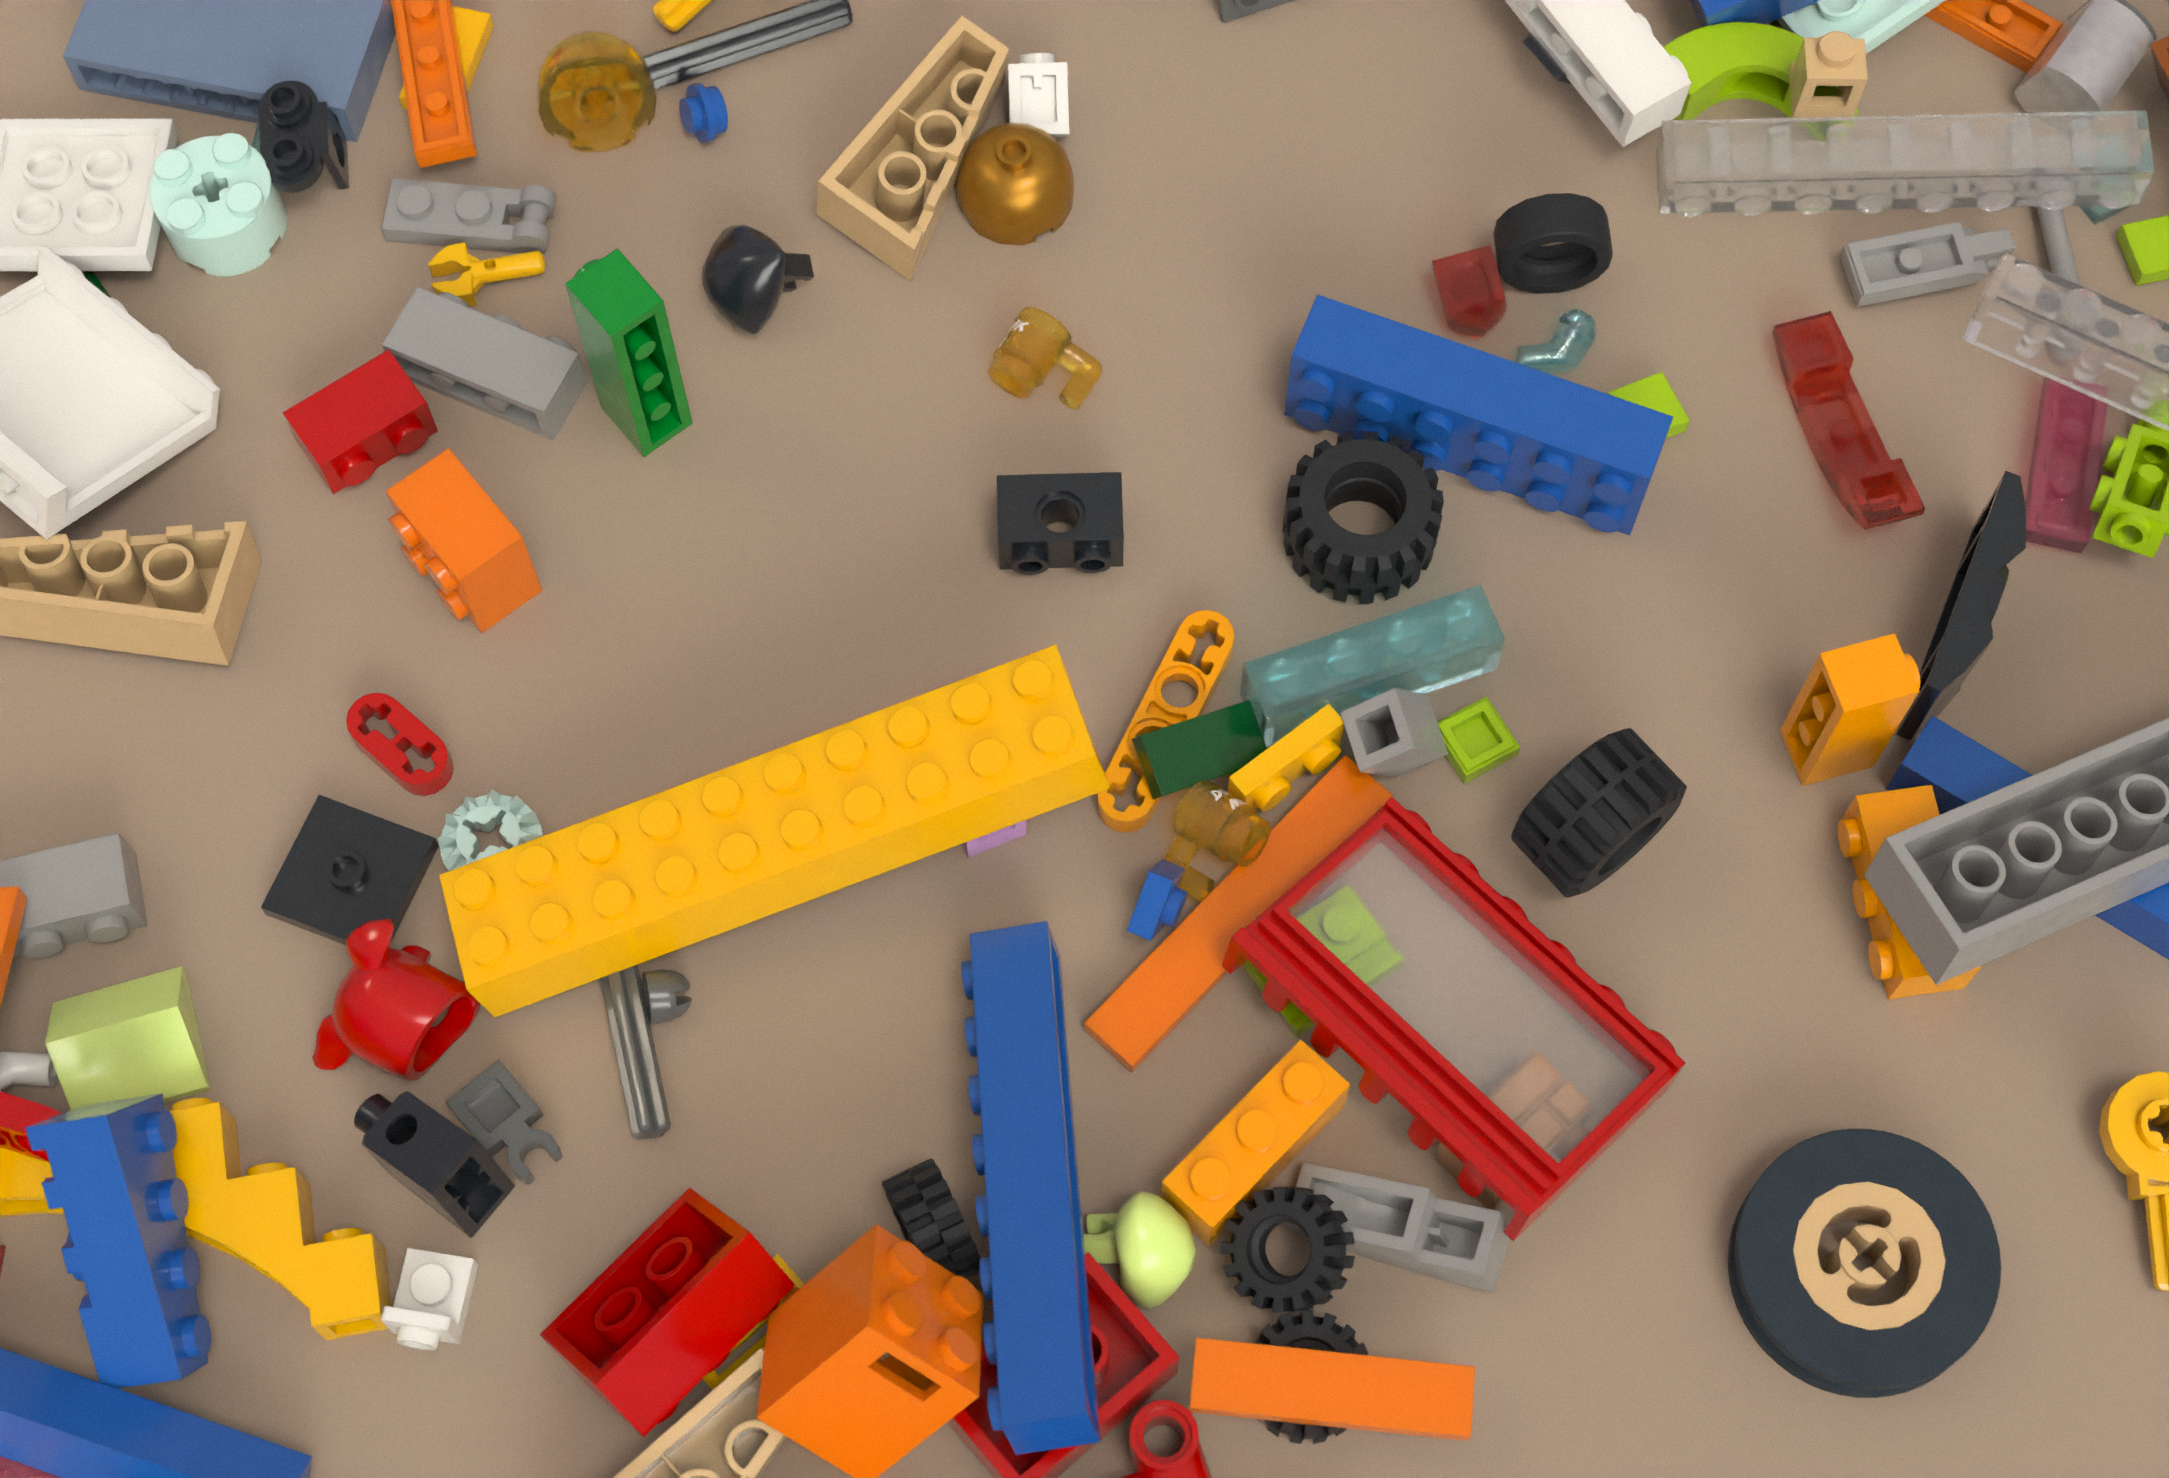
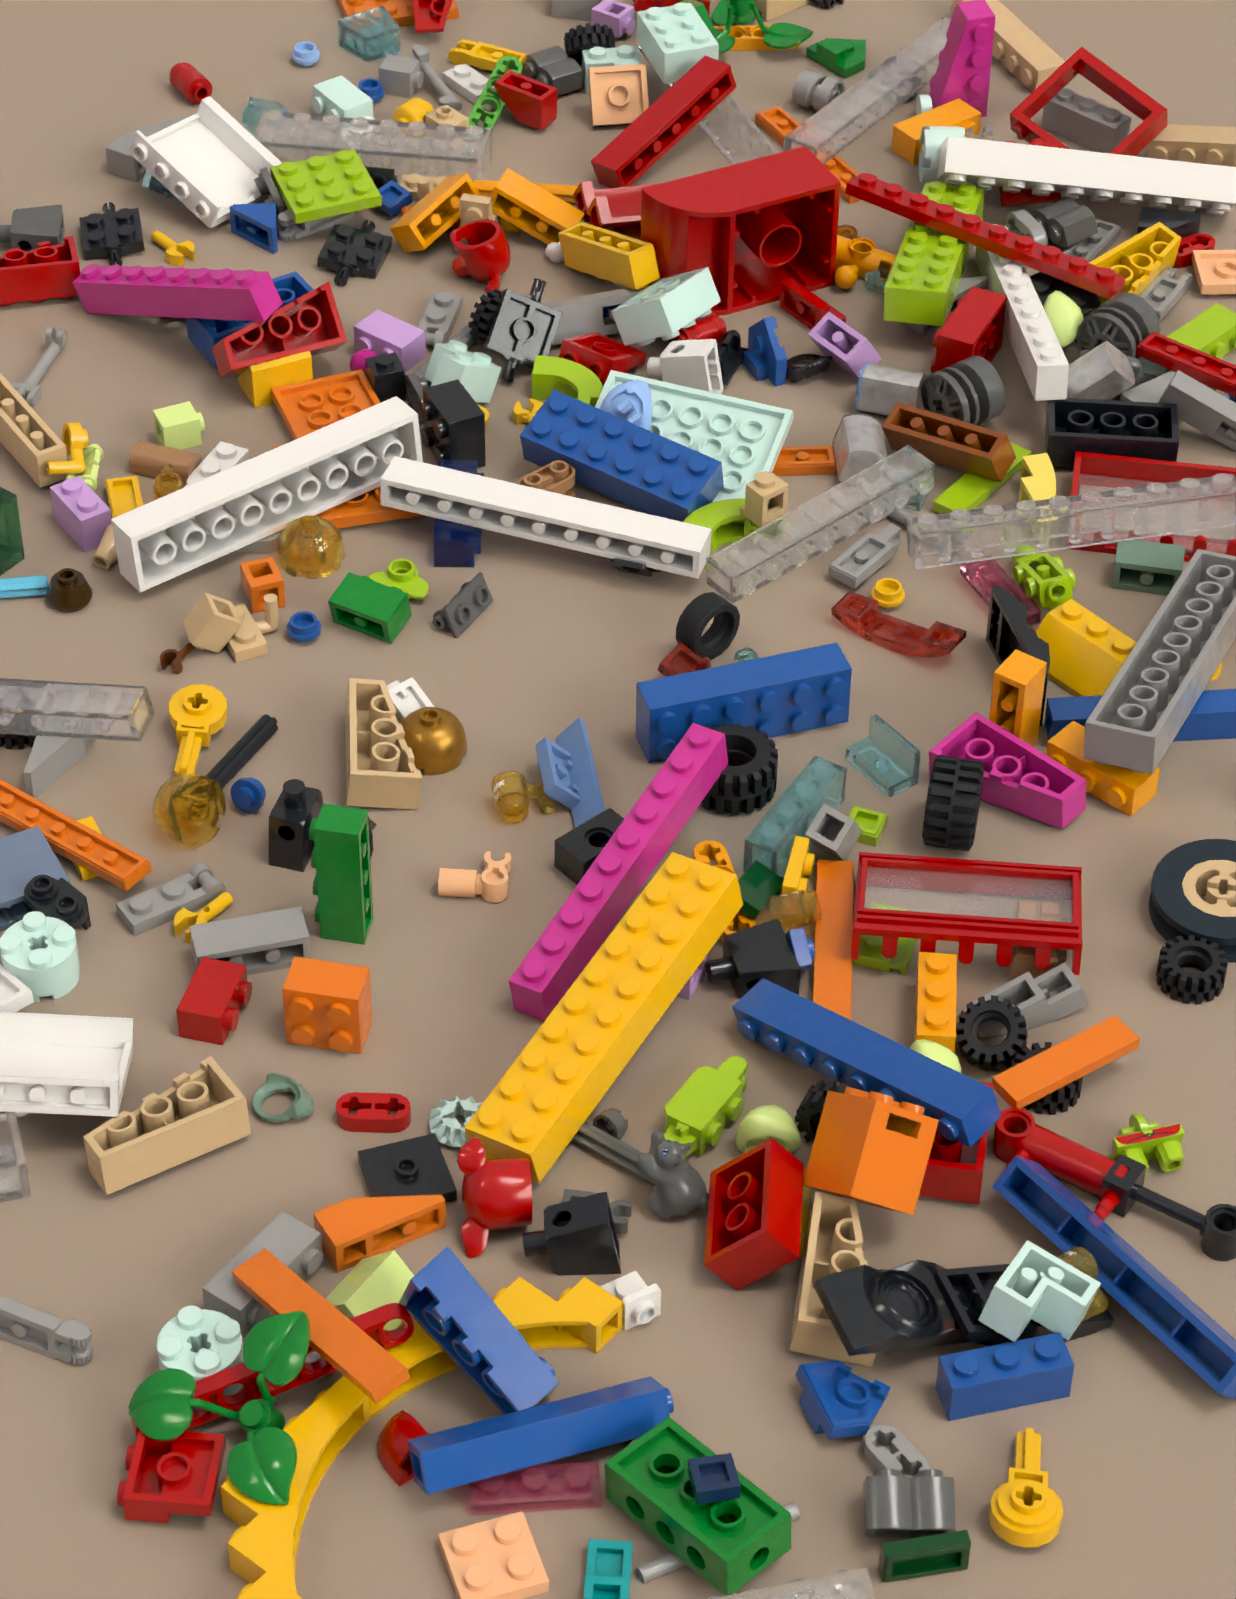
camera: 40 degrees left, 25 degrees down
(205, 925) = (376, 1225): none -> orange slope
(329, 666) = (276, 1083): none -> sand green piece
(634, 1160) = (678, 1185): none -> dark grey animal
(694, 205) = (289, 816): none -> black torso
(791, 1068) = (706, 1105): none -> lime hinge
(832, 1175) = (768, 1123): none -> yellowish green piece
(879, 476) = (490, 884): none -> light nougat bar
(1026, 594) = (618, 872): none -> dark pink brick
(1090, 872) = (755, 955): none -> black torso
(1137, 367) = (571, 773): none -> medium blue bracket
(1603, 647) = (886, 758): none -> clear light blue panel
(1724, 1317) = (1191, 984): none -> black tyre
(1749, 802) = (1016, 772): none -> dark pink wedge
(1893, 350) = (888, 593): none -> yellow plate
(2078, 660) = (1083, 649): none -> yellow slope

